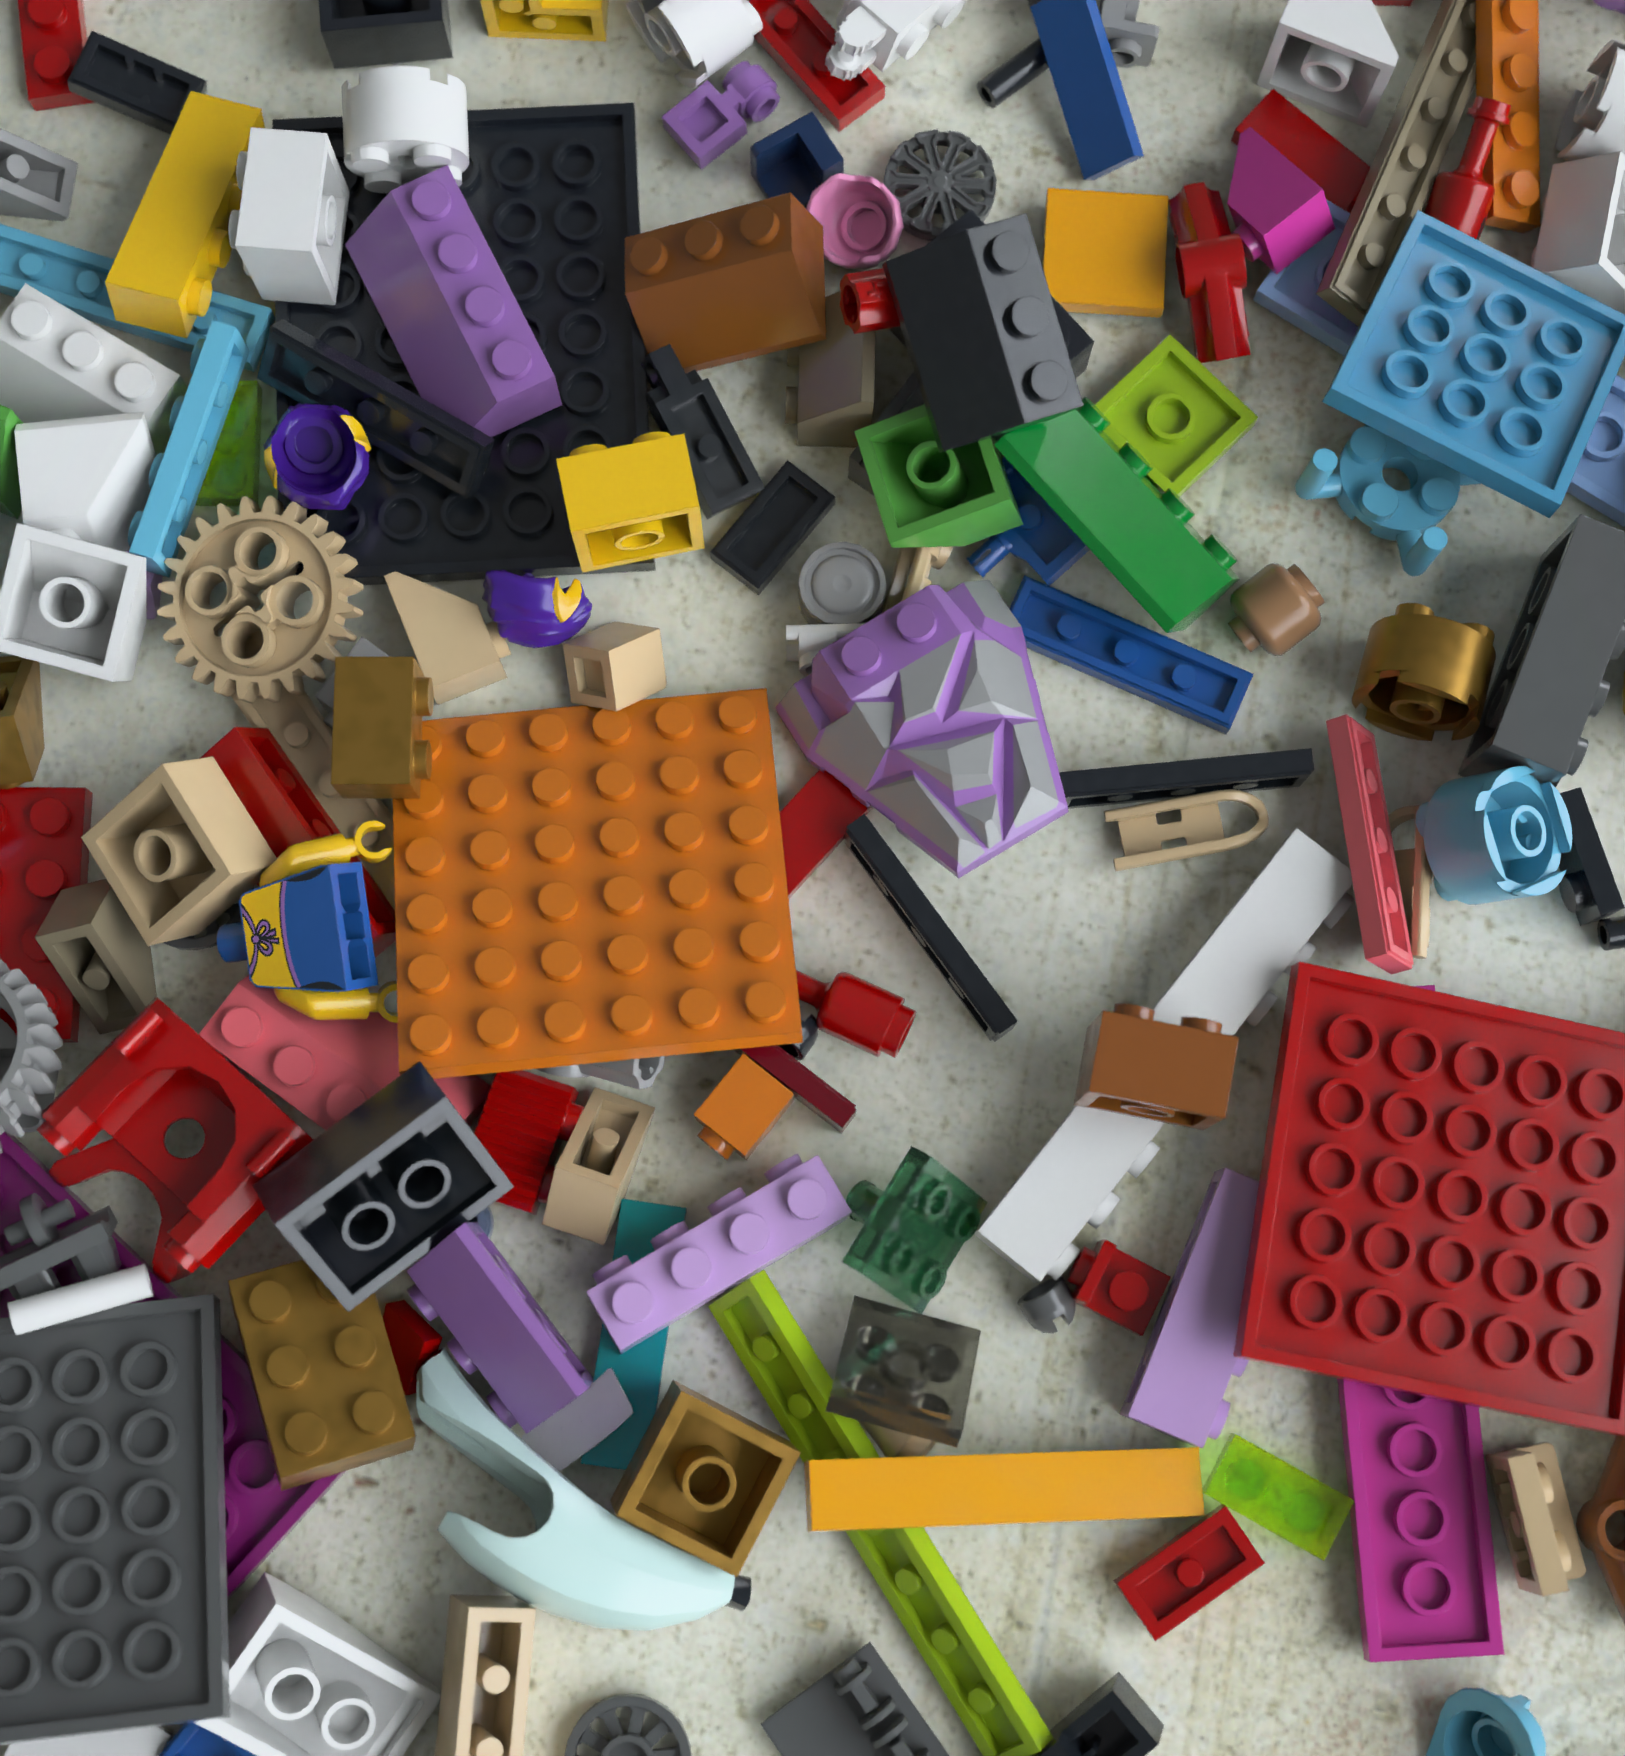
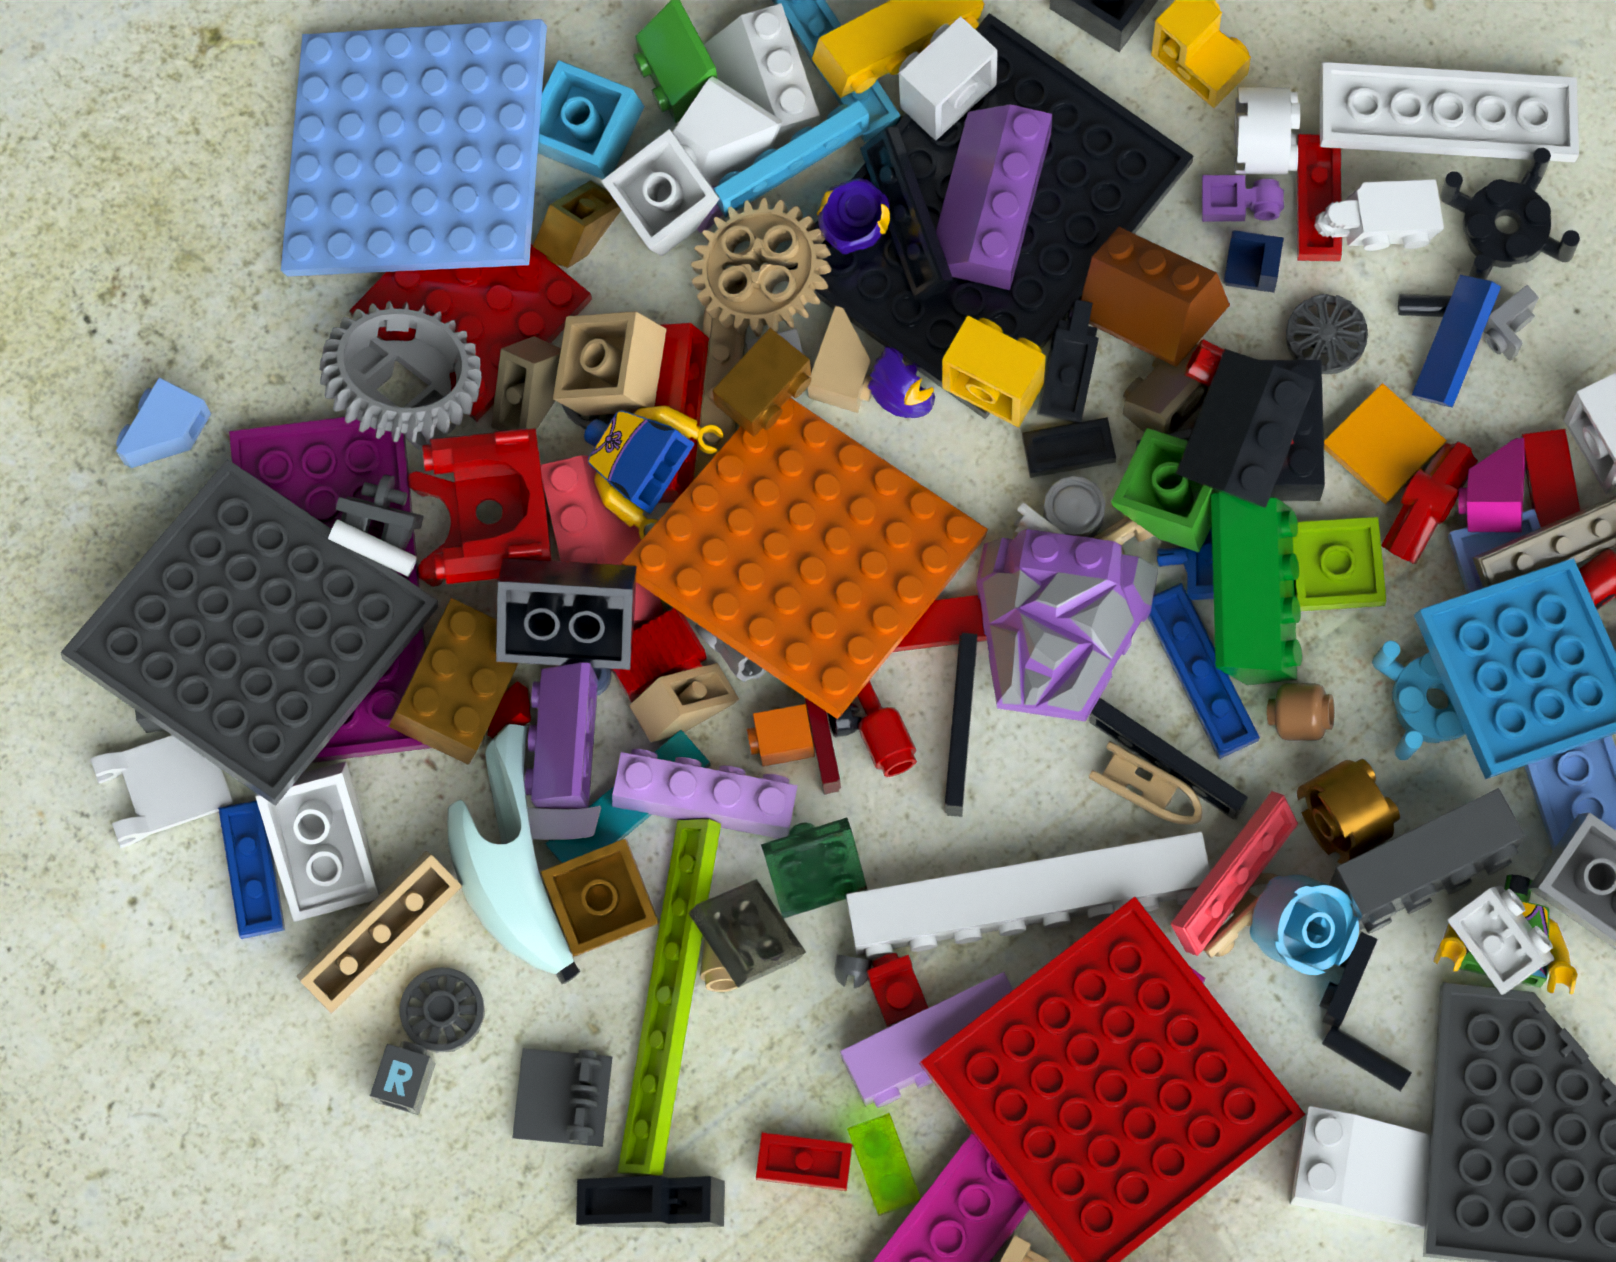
camera: 50 degrees right, 5 degrees down
(237, 453) = (811, 184): clear neon green plate -> none
(403, 126) = (1048, 75): white brick -> none
(615, 665) = (918, 452): tan panel -> none
(858, 220) = (1256, 316): bright pink hair -> none
(1002, 1489) = (746, 1034): light orange tile -> none
(1157, 1067) = (1004, 880): dark orange brick -> none

